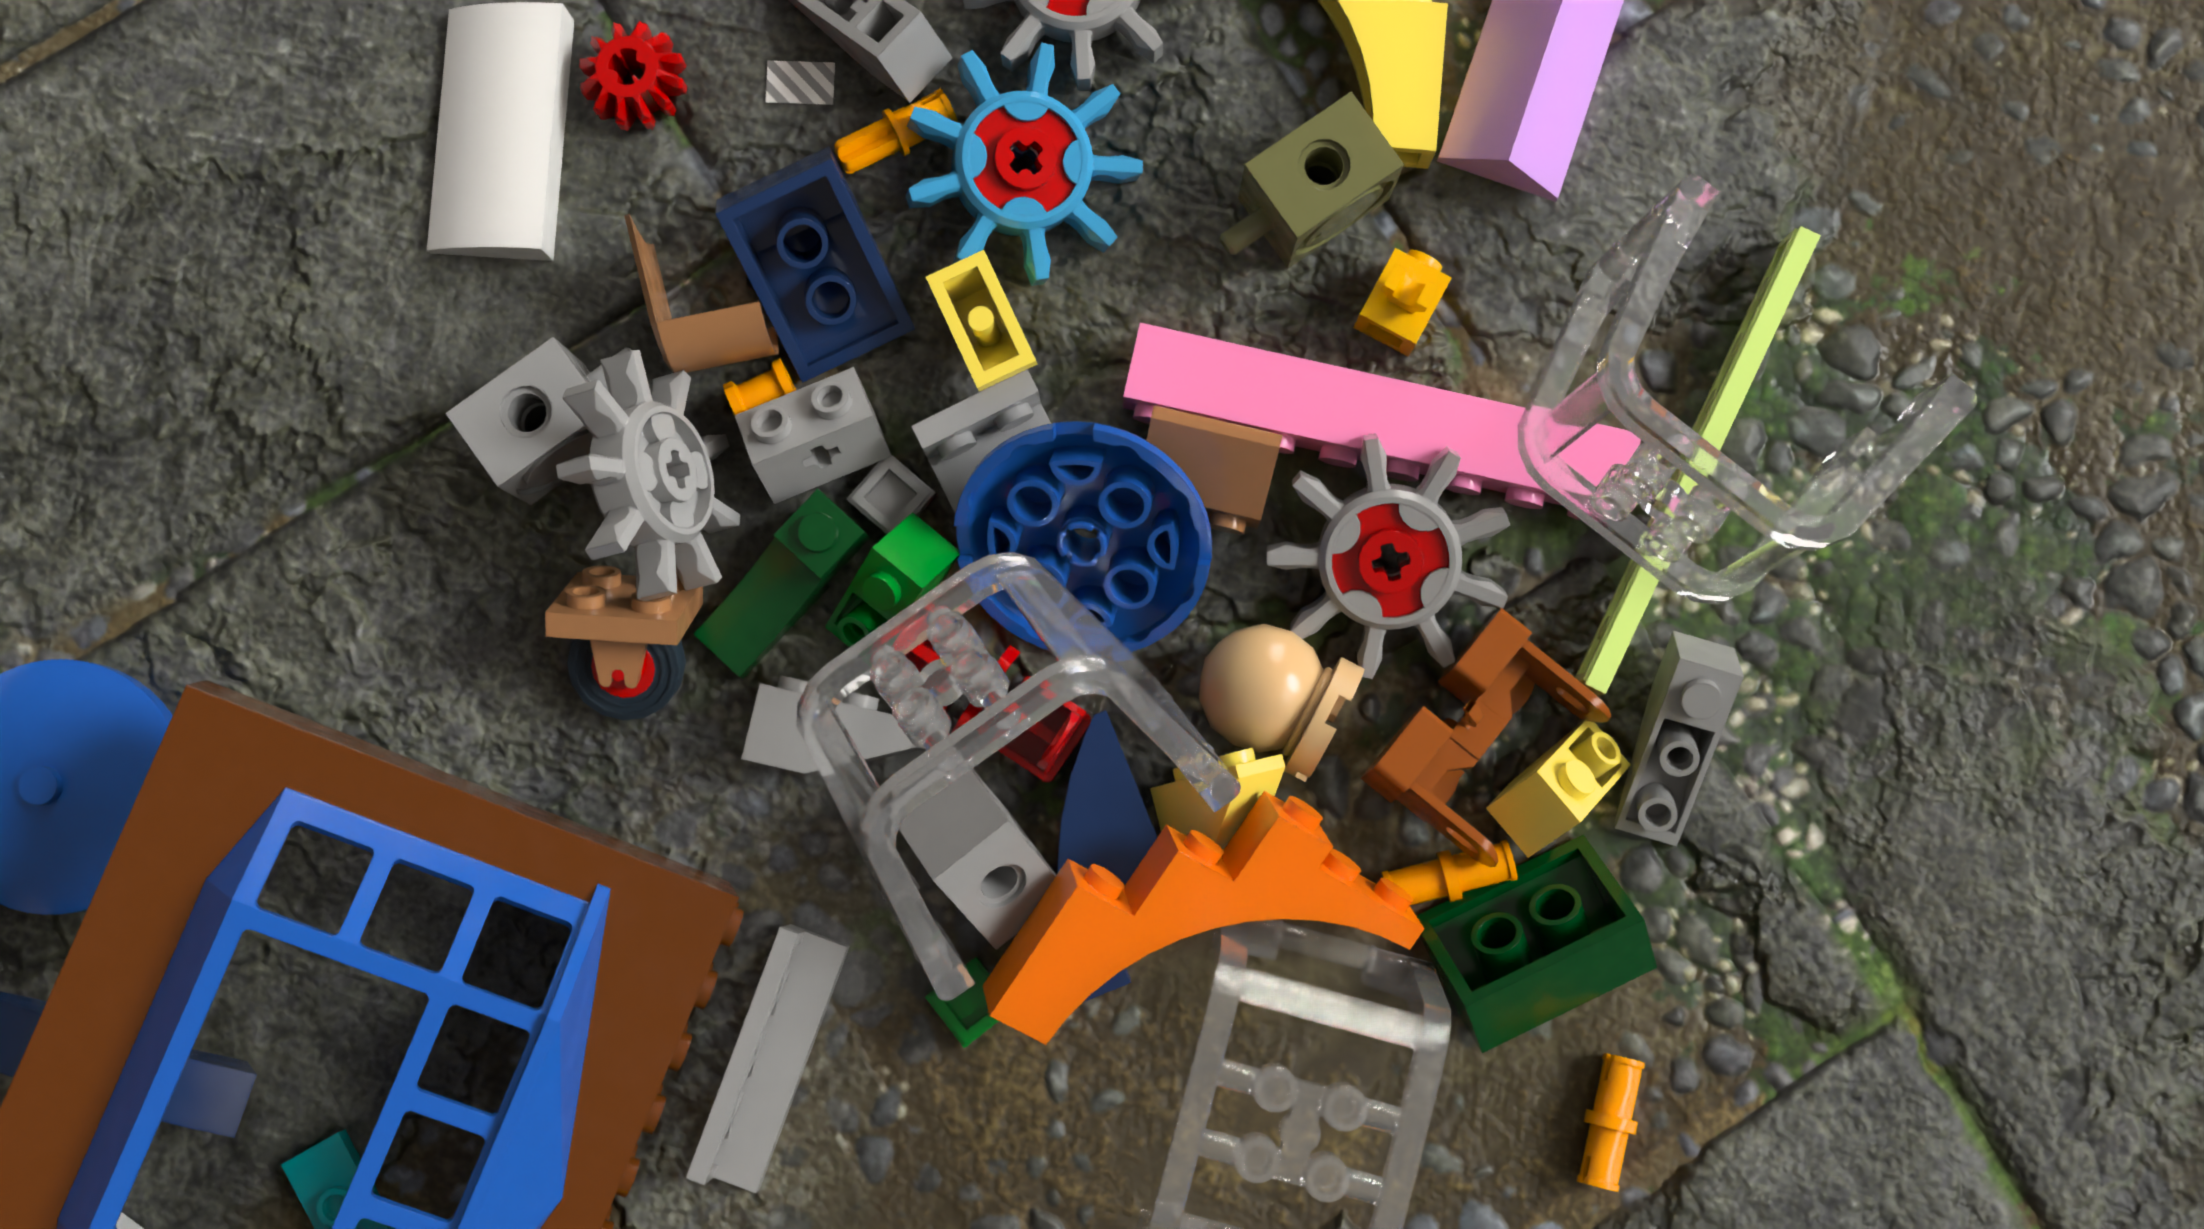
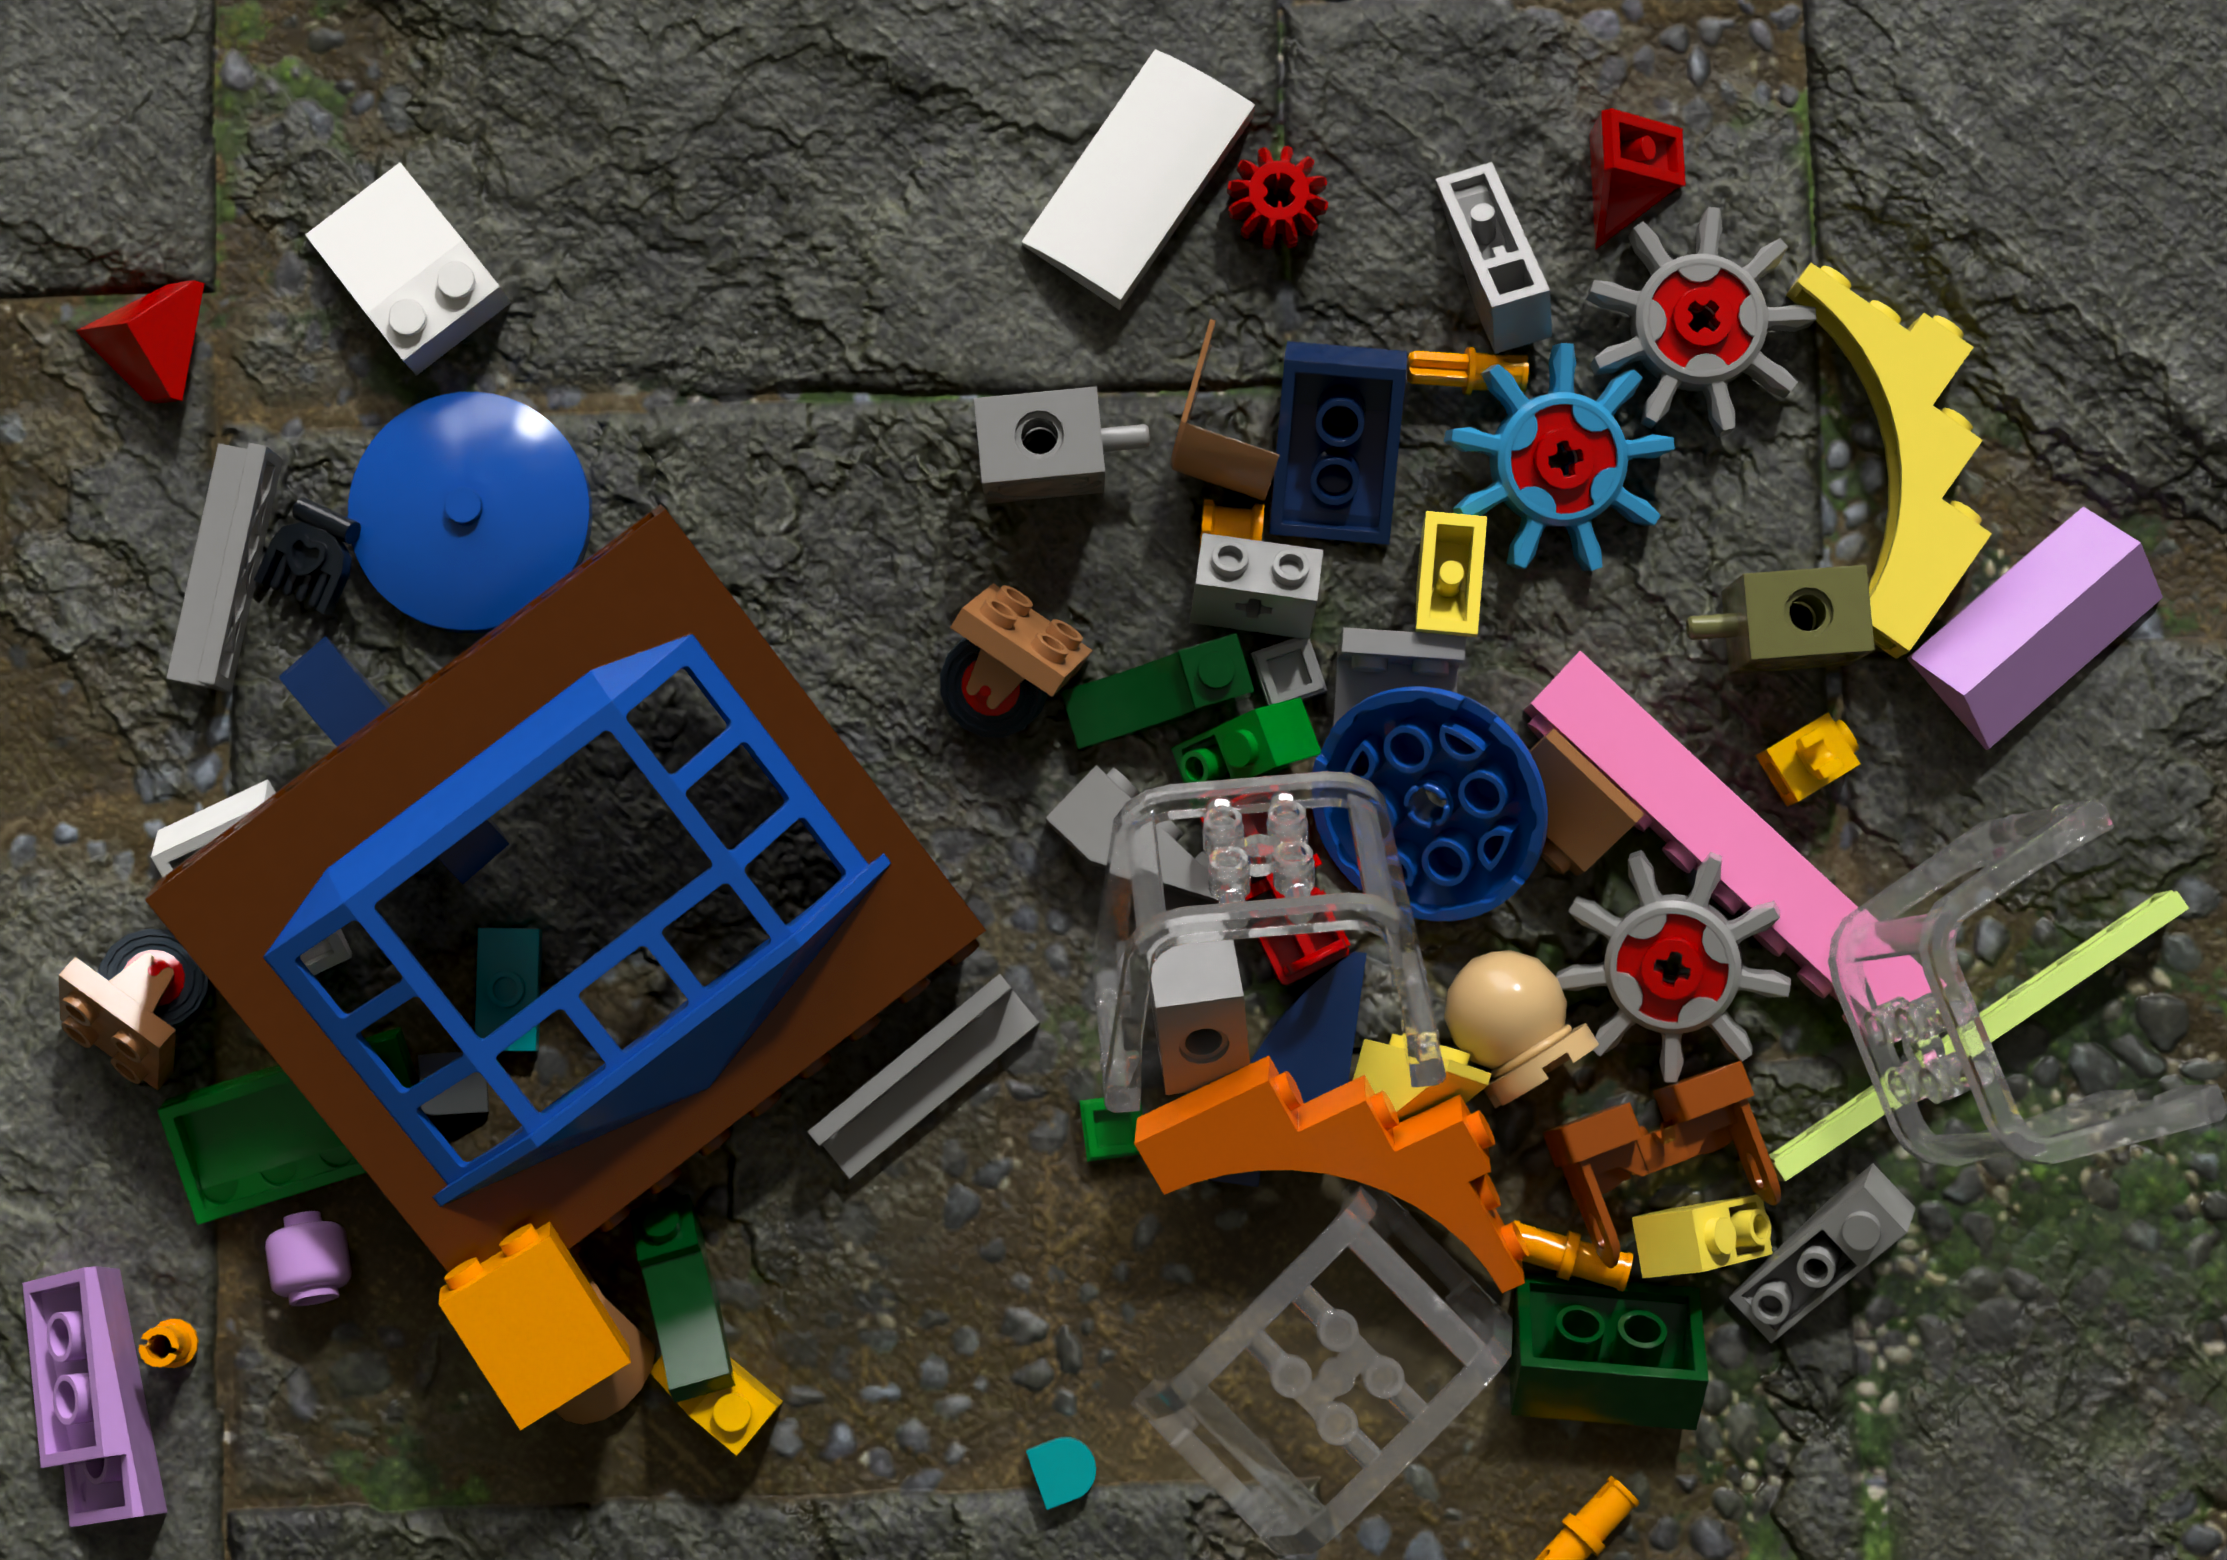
camera: 20 degrees right, 0 degrees up
(649, 476) = (1109, 545): light grey gear -> none
(800, 82) = (1411, 280): sticker -> none

